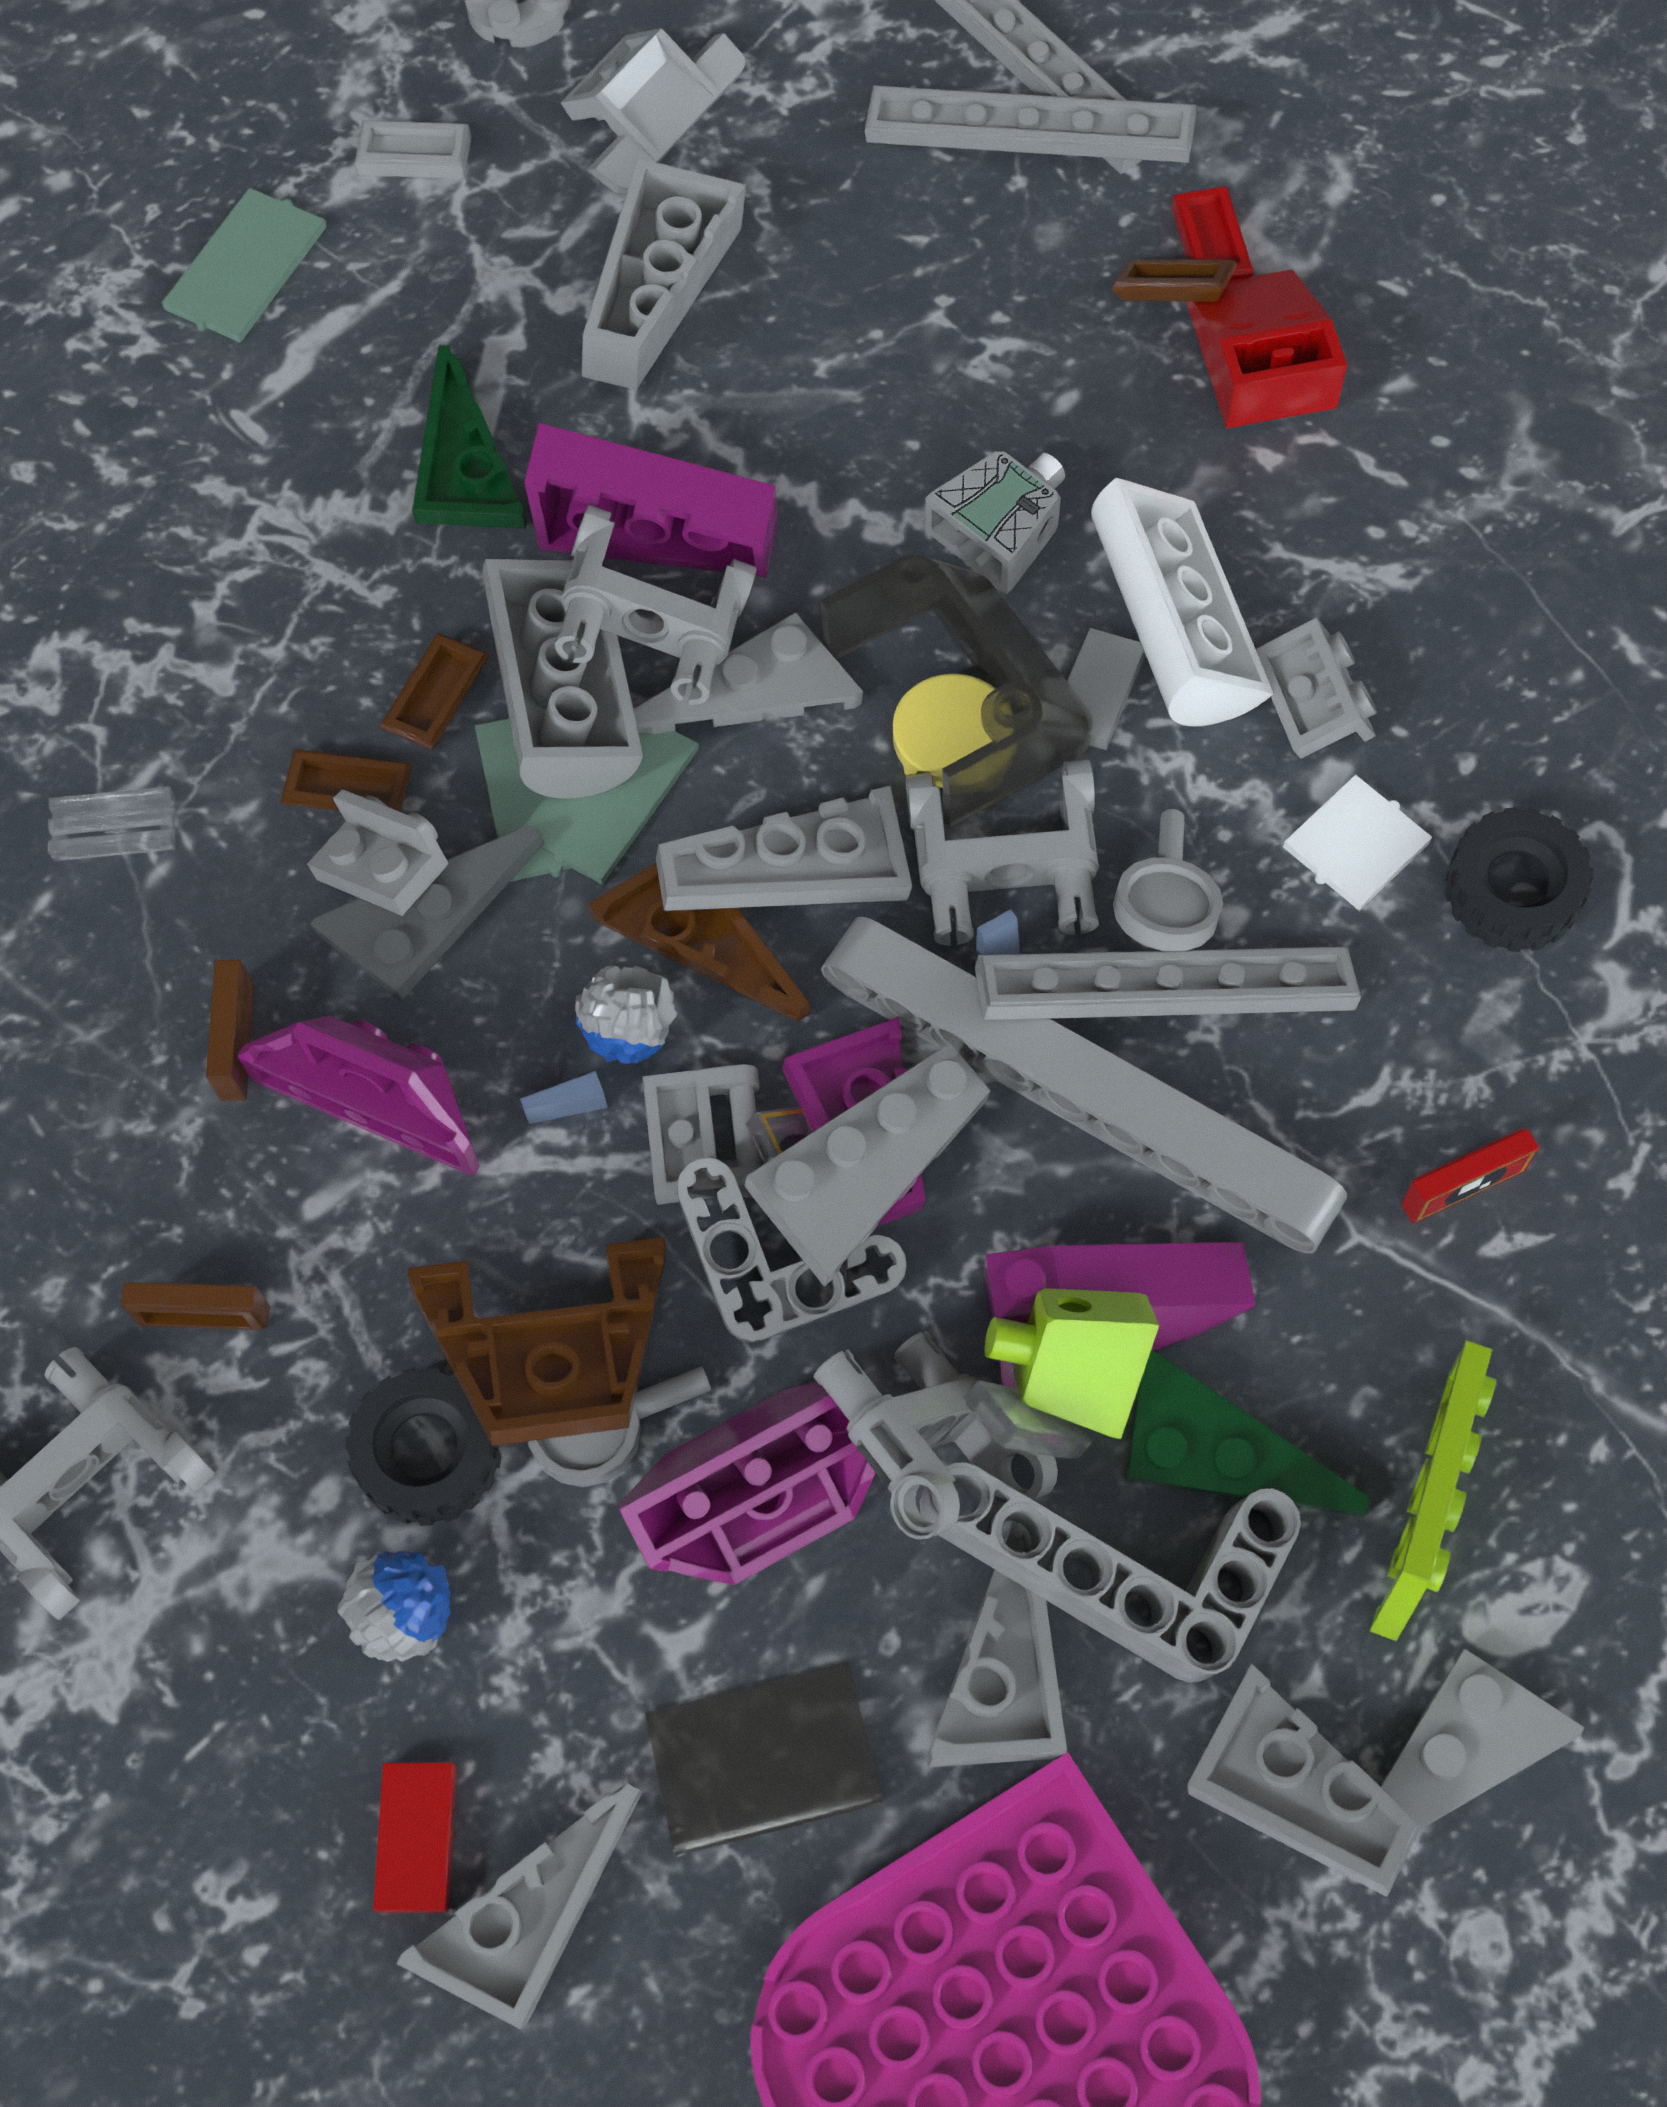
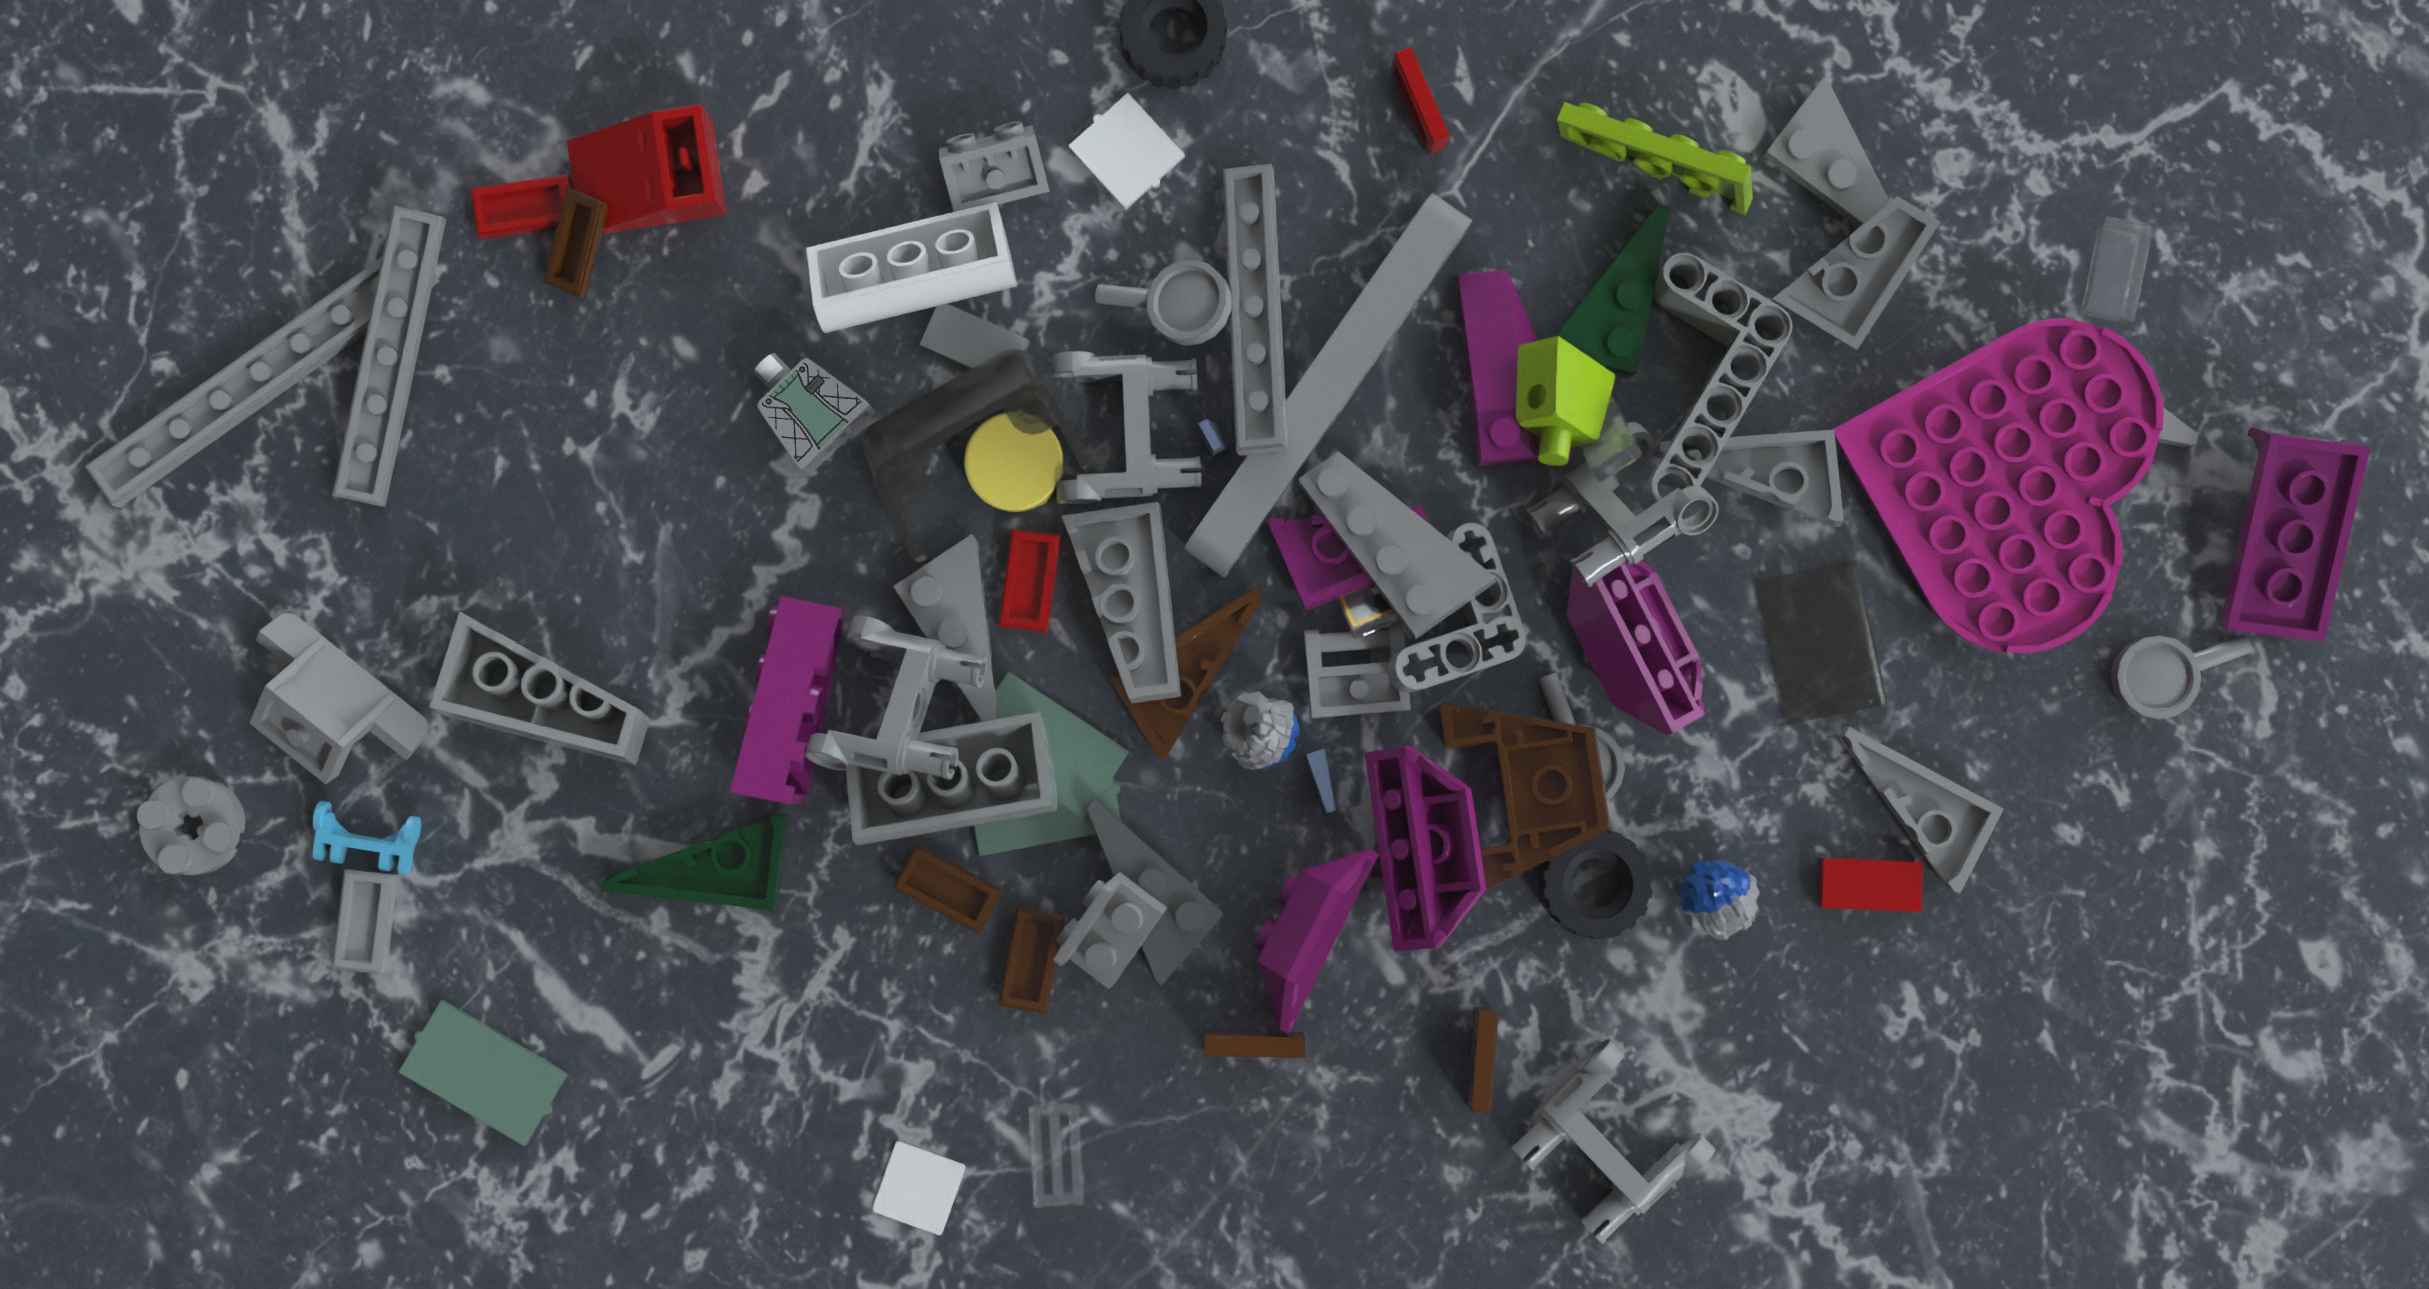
camera: 90 degrees left, 20 degrees up
(85, 686) = (918, 1188): none -> white sticker
(470, 1201) = (1424, 846): none -> magenta wedge
(496, 117) = (331, 832): none -> medium azure piece
(809, 761) = (1029, 581): none -> red tile

